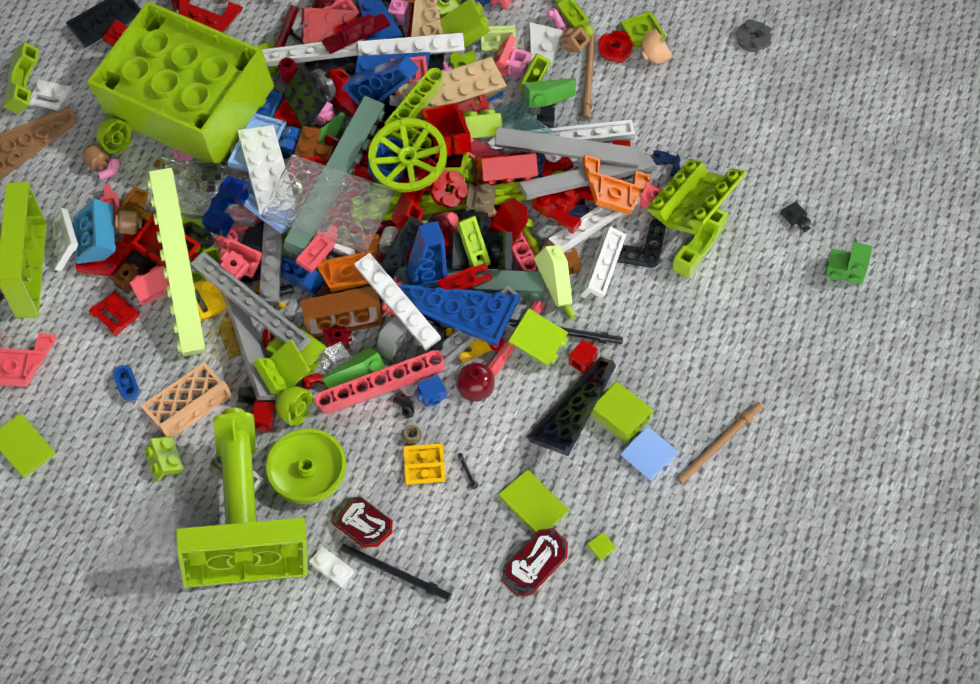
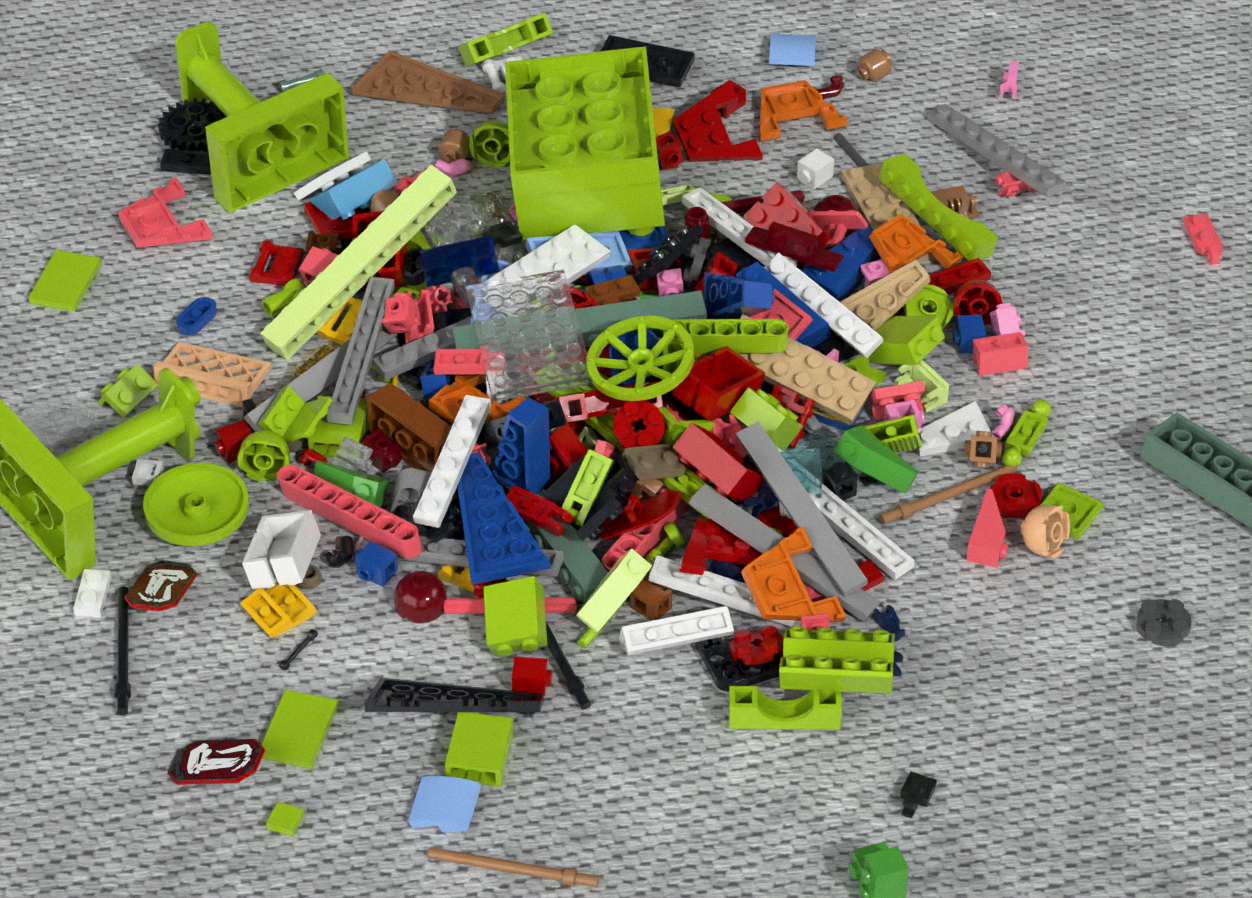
camera: 55 degrees right, 15 degrees down
(155, 320) = (275, 303): none -> lime piece
(390, 435) = (281, 549): none -> white piece
(636, 74) = (988, 535): none -> coral slope
(639, 222) = (757, 645): none -> red plate

